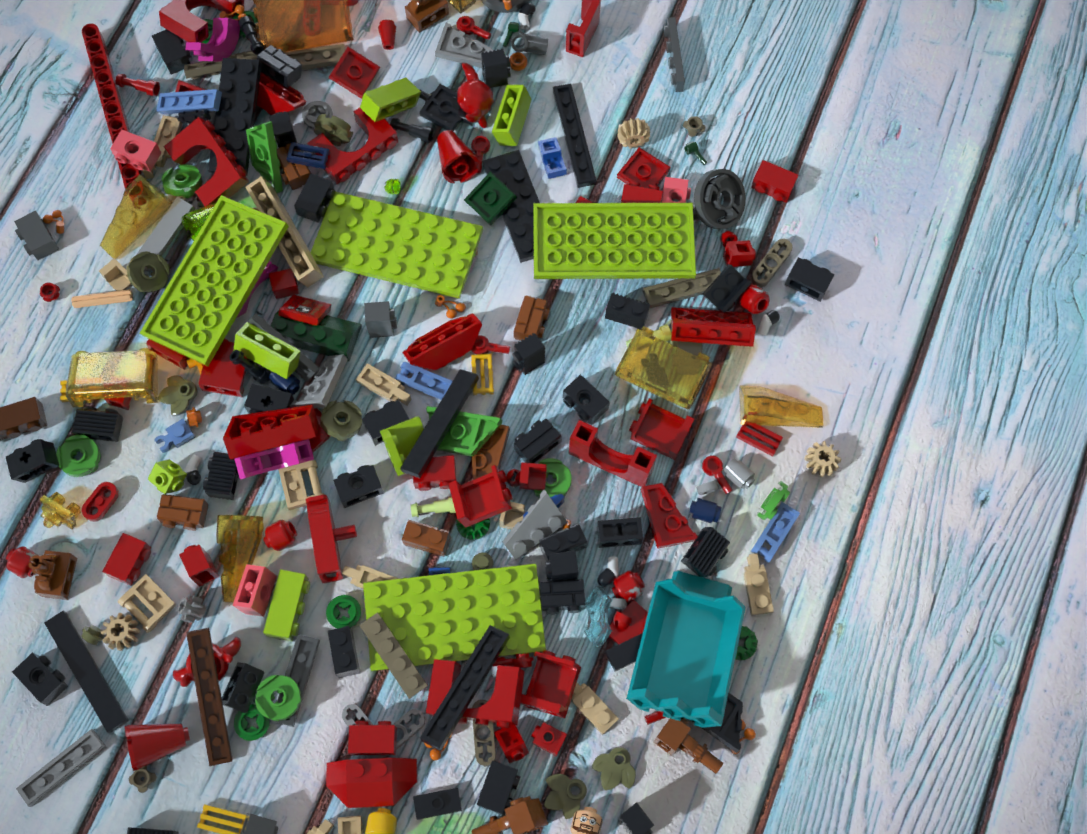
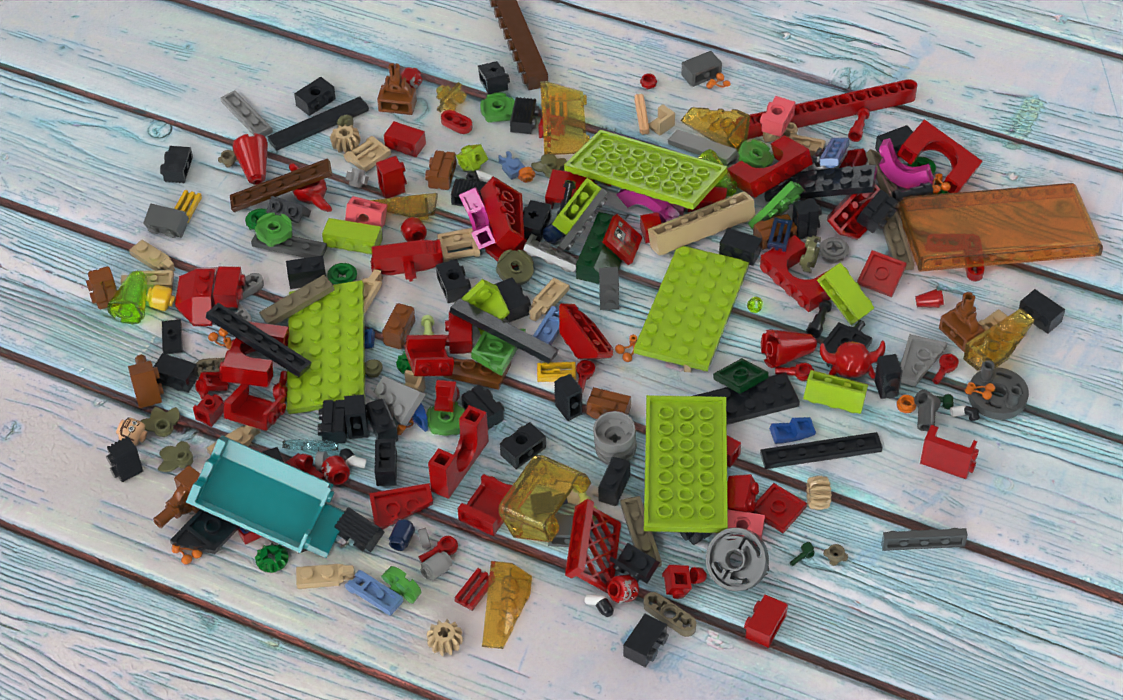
camera: 95 degrees right, 20 degrees down
(143, 282) = (662, 125): olive plate -> none
(580, 298) = (614, 436): none -> light grey wheel

